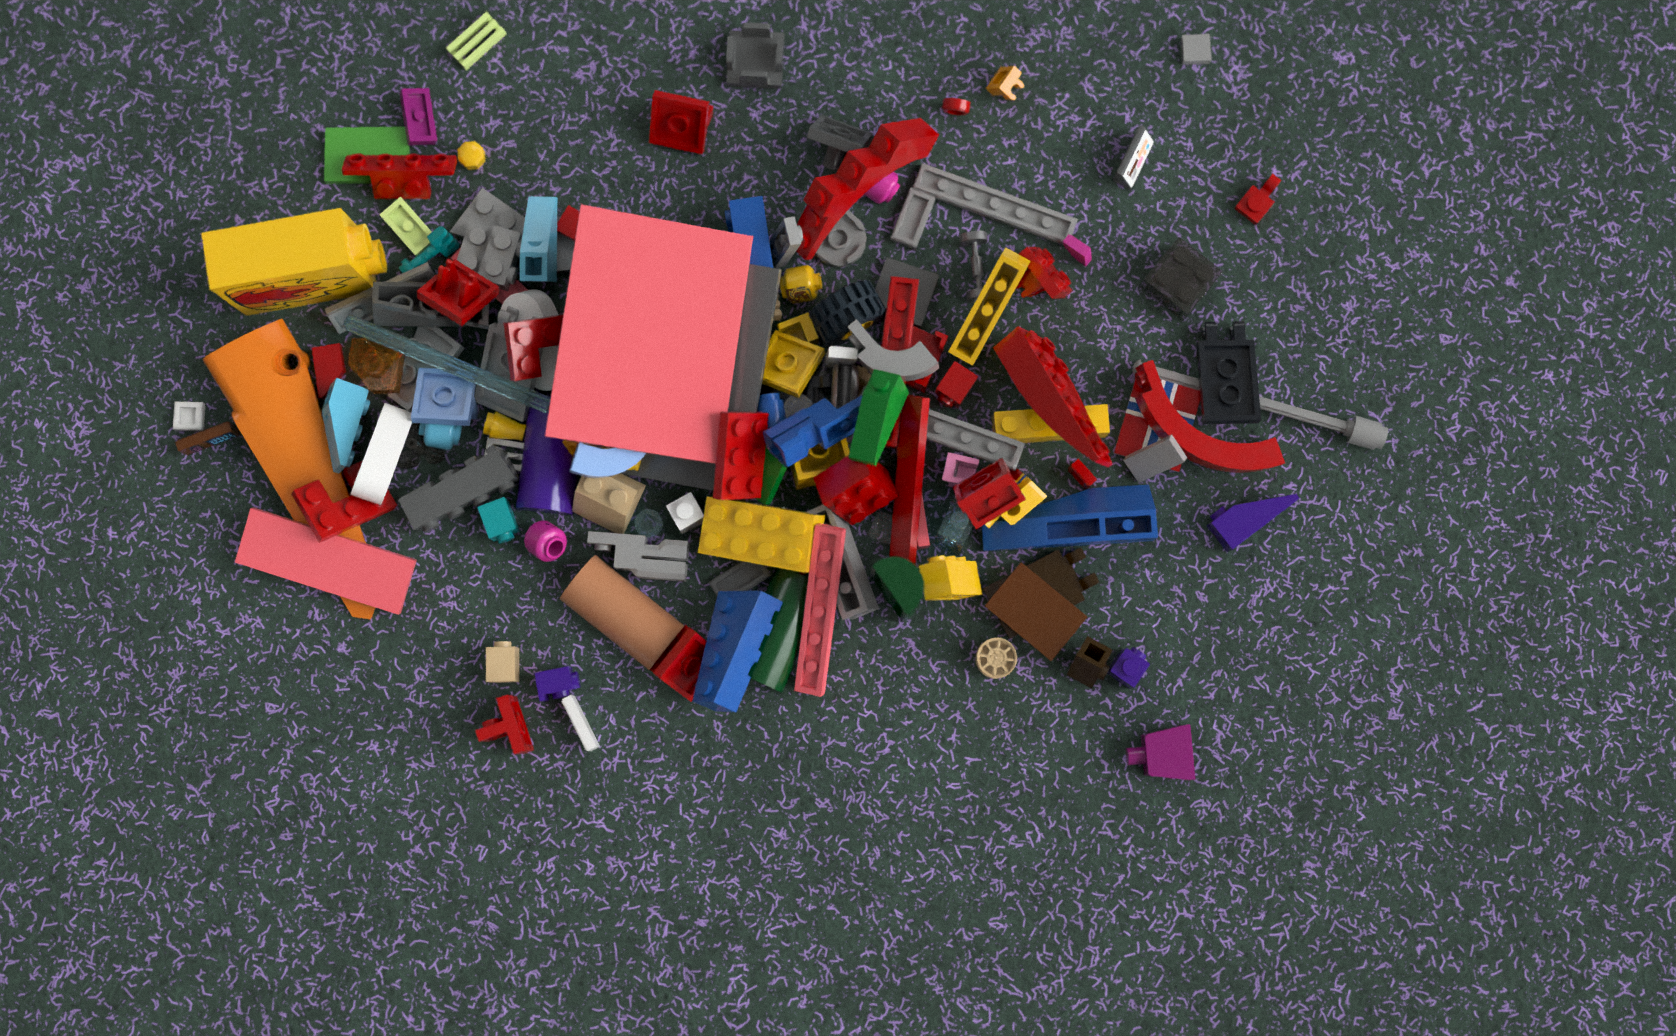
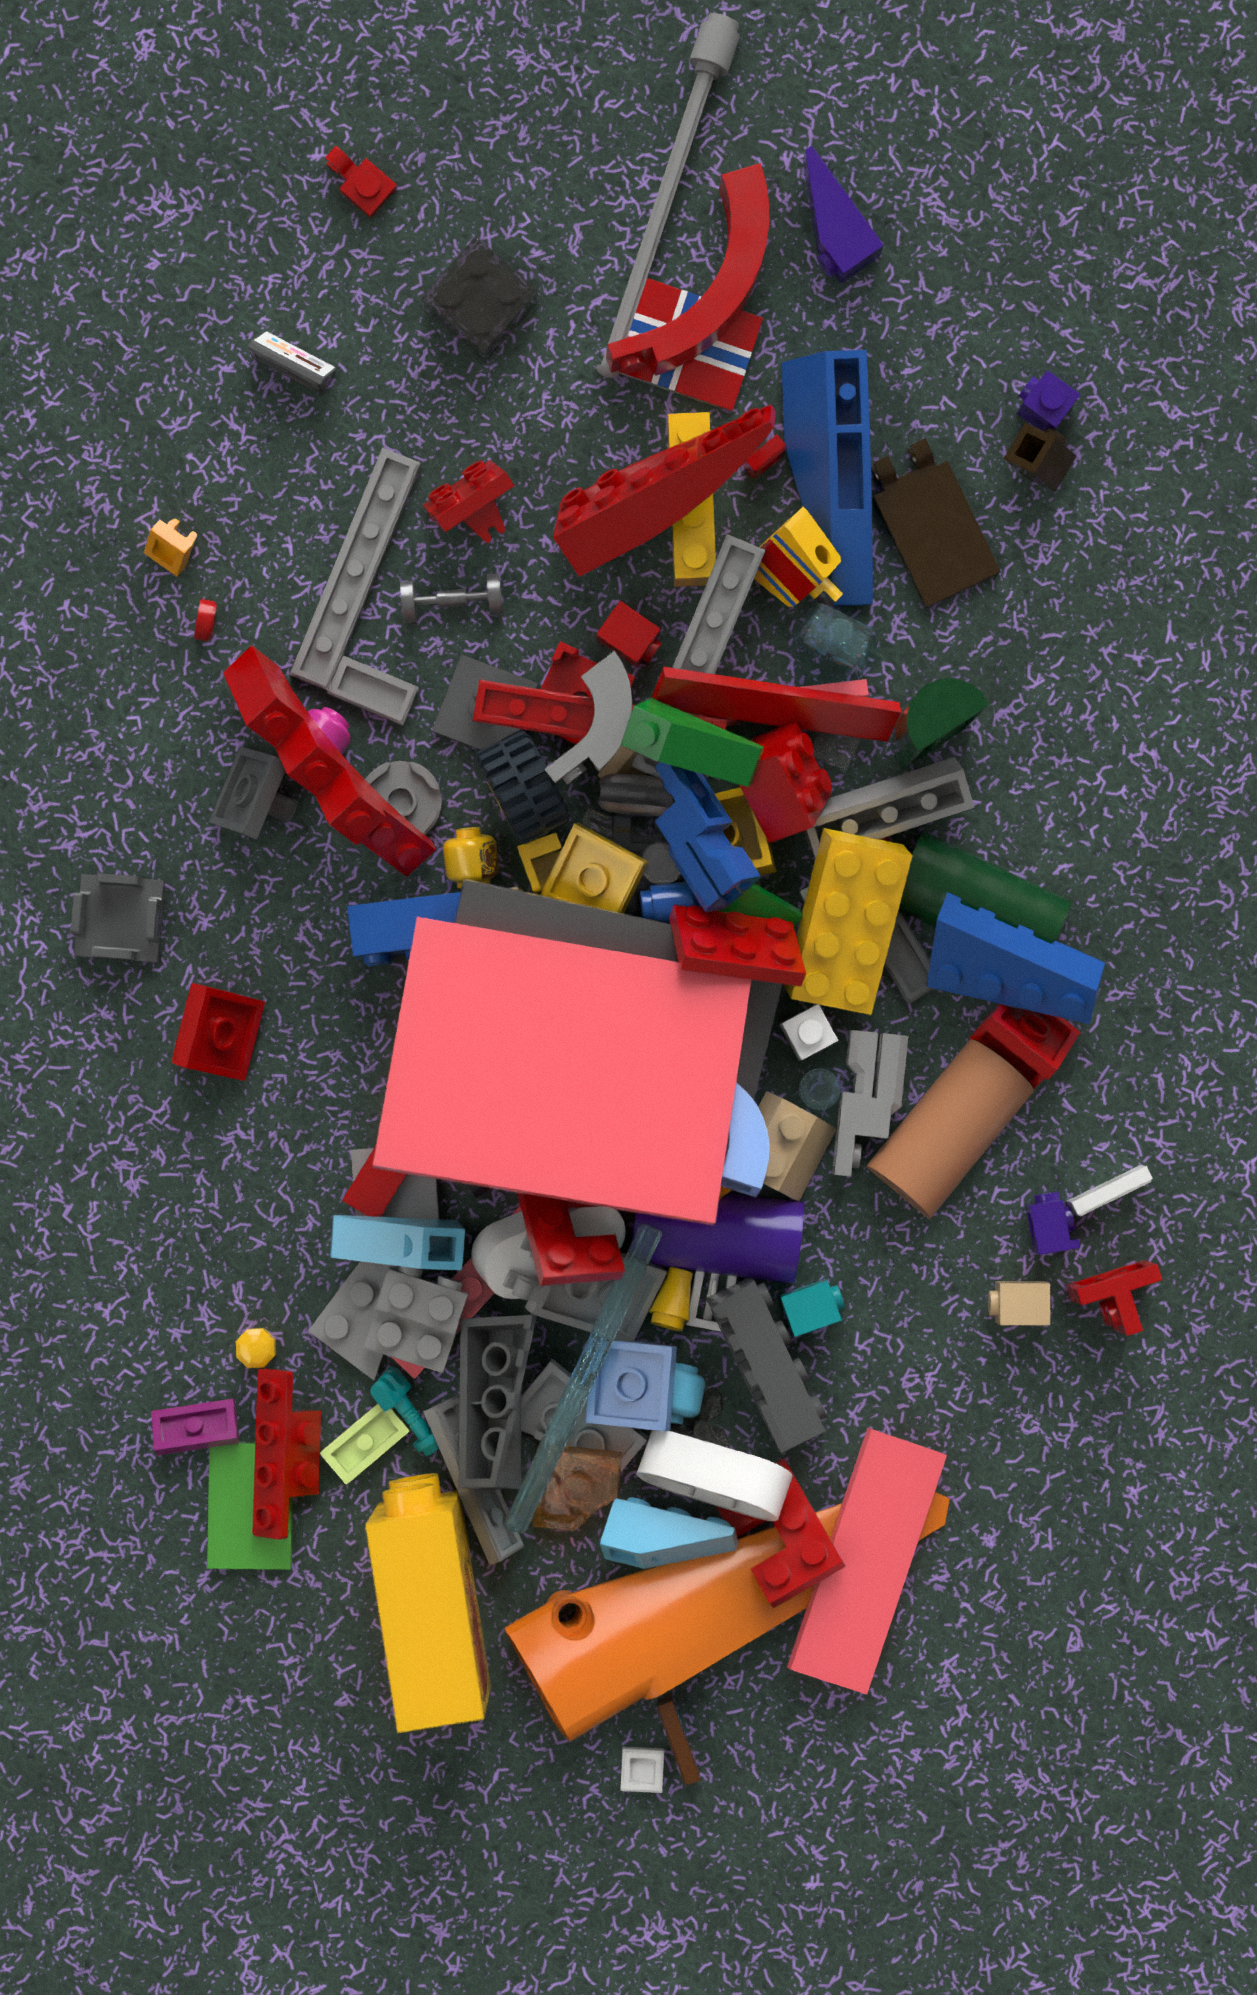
camera: 95 degrees left, 5 degrees up
(328, 366) = (574, 1562): red tile -> none
(457, 292) = (480, 1359): red plate -> none
(471, 31) = (52, 1314): yellowish green tile -> none
(545, 541) = (845, 1238): dark pink head -> none
(786, 241) = (412, 873): light grey hinge -> none
(820, 609) = (958, 838): coral plate -> none
(841, 355) = (590, 798): white tile -> none
(950, 578) = (921, 647): yellow brick -> none
(958, 468) = (760, 632): bright pink window -> none
(988, 493) = (801, 588): red bracket -> none
(989, 306) = (520, 578): yellow brick -> none
(996, 658) = (1028, 591): tan wheel -> none
(1036, 611) = (964, 531): reddish brown tile -> none
(1078, 249) = (430, 449): dark pink tile -> none
(1155, 458) = (748, 349): light grey tile -> none
(1165, 753) = (1169, 356): magenta torso -> none
(1196, 49) = (126, 261): light grey tile -> none
(1228, 377) = (628, 239): black tile -> none

